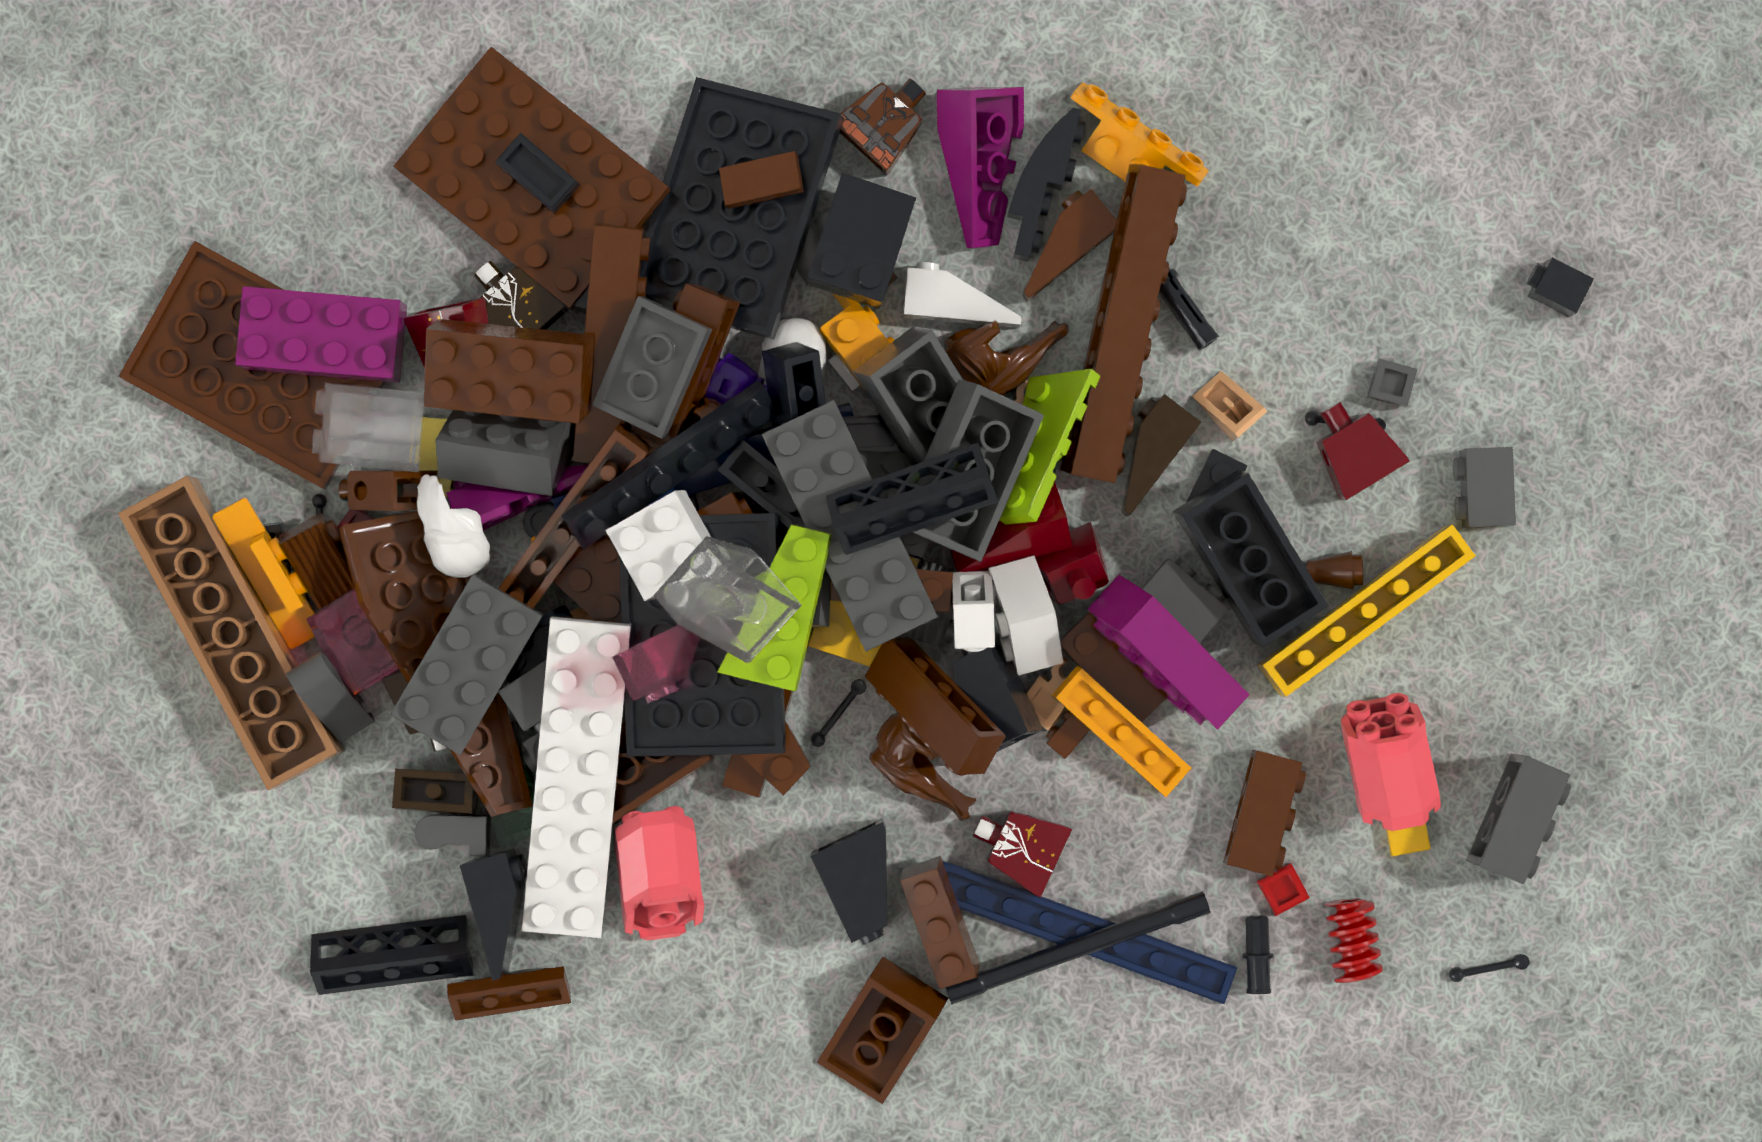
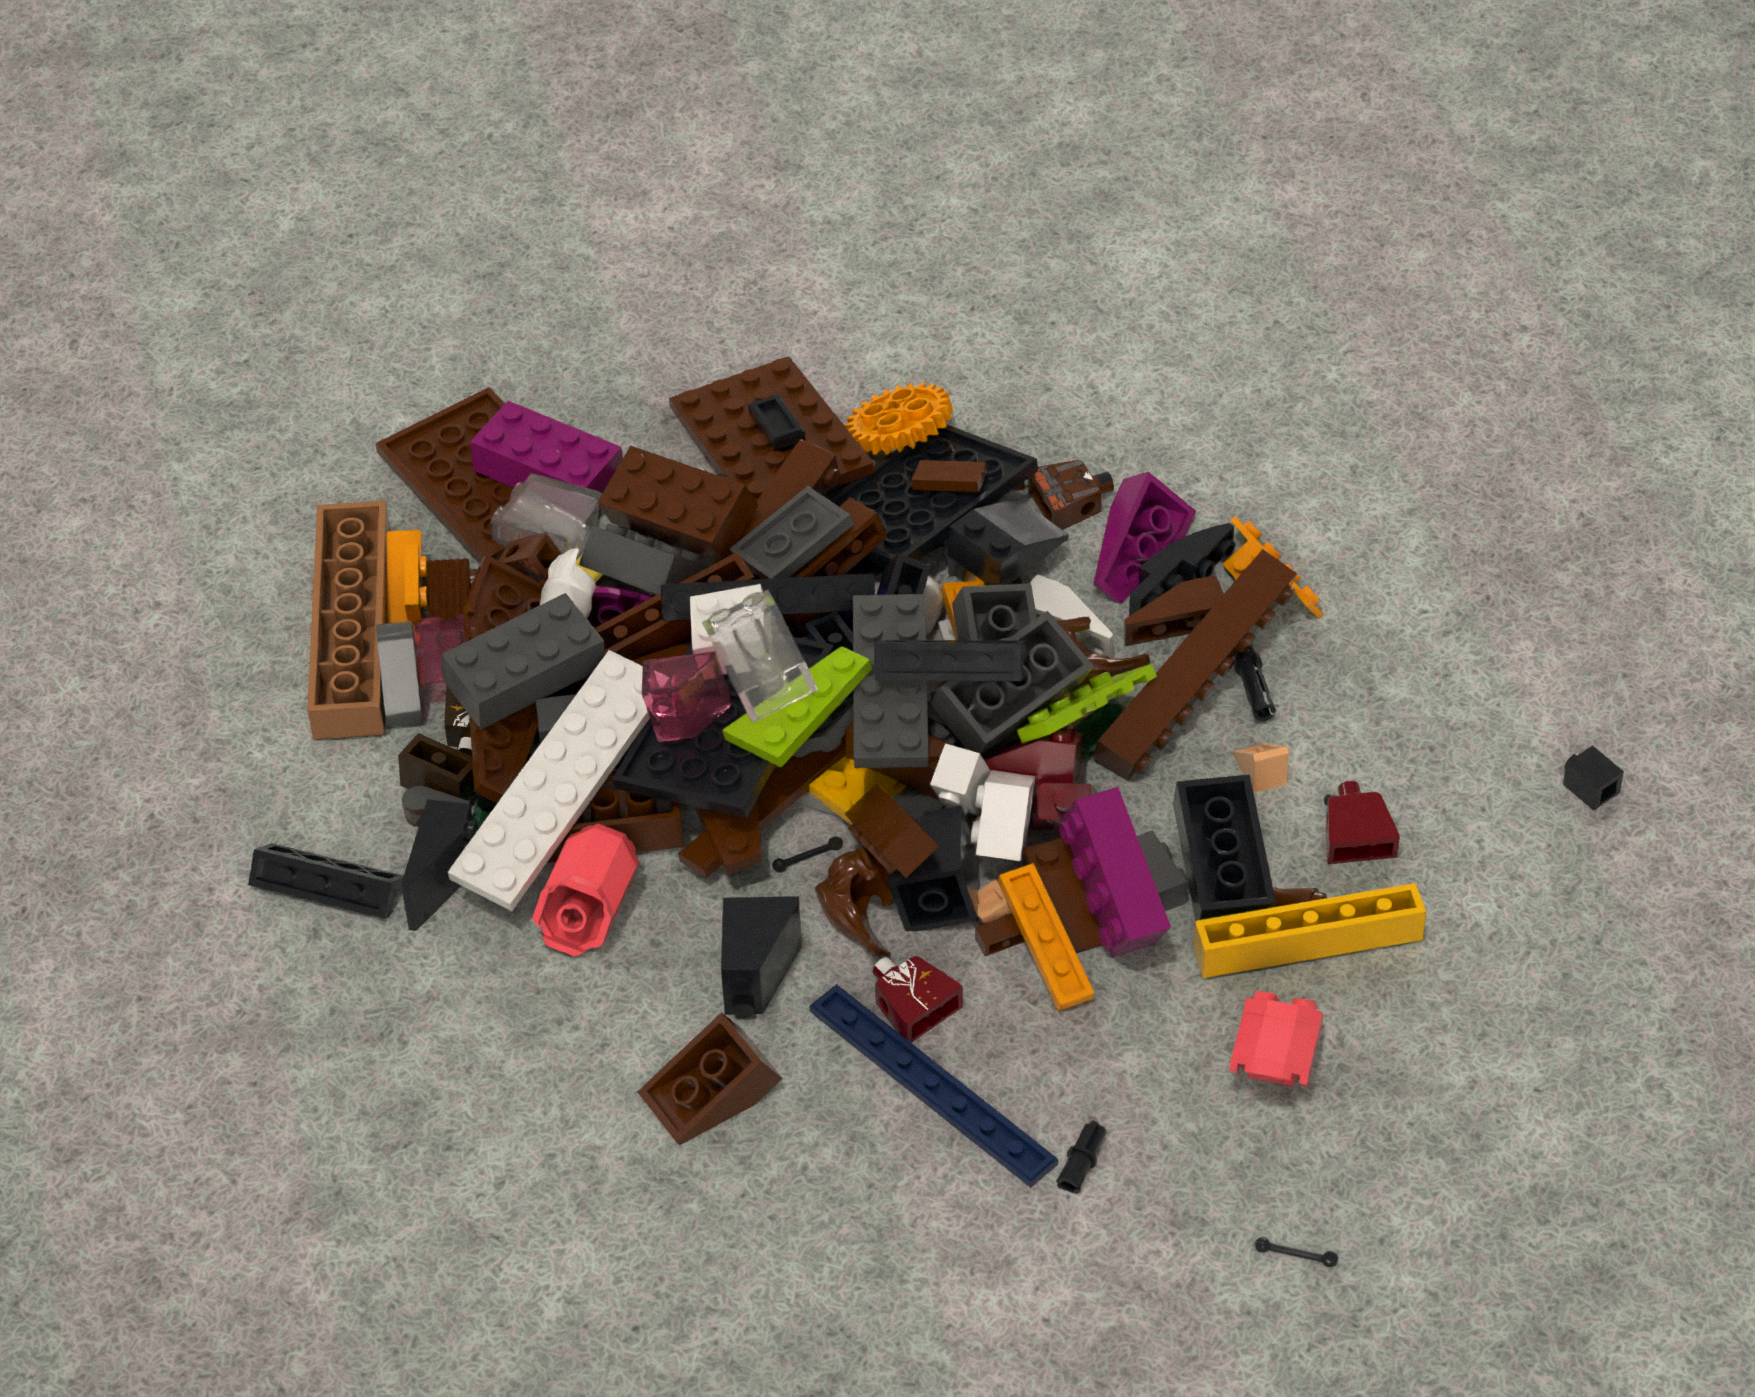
camera: 25 degrees right, 40 degrees down
(509, 993) = (406, 936): reddish brown plate -> none
(683, 116) = (900, 417): none -> light orange gear
(940, 922) = (807, 1012): reddish brown brick -> none
(1157, 442) = (1188, 756): dark brown slope -> none
(1174, 913) = (816, 1074): black piece -> none
(1264, 813) = (1142, 1048): reddish brown brick -> none
(1283, 889) = (1131, 1119): red tile -> none
(1354, 940) = (1176, 1171): red piece -> none
(1392, 383) = (1412, 794): dark grey plate -> none
(1408, 840) = (1268, 1118): yellow tile -> none
(1486, 487) = (1461, 889): dark grey brick -> none
(1519, 818) = (1375, 1123): dark grey brick -> none

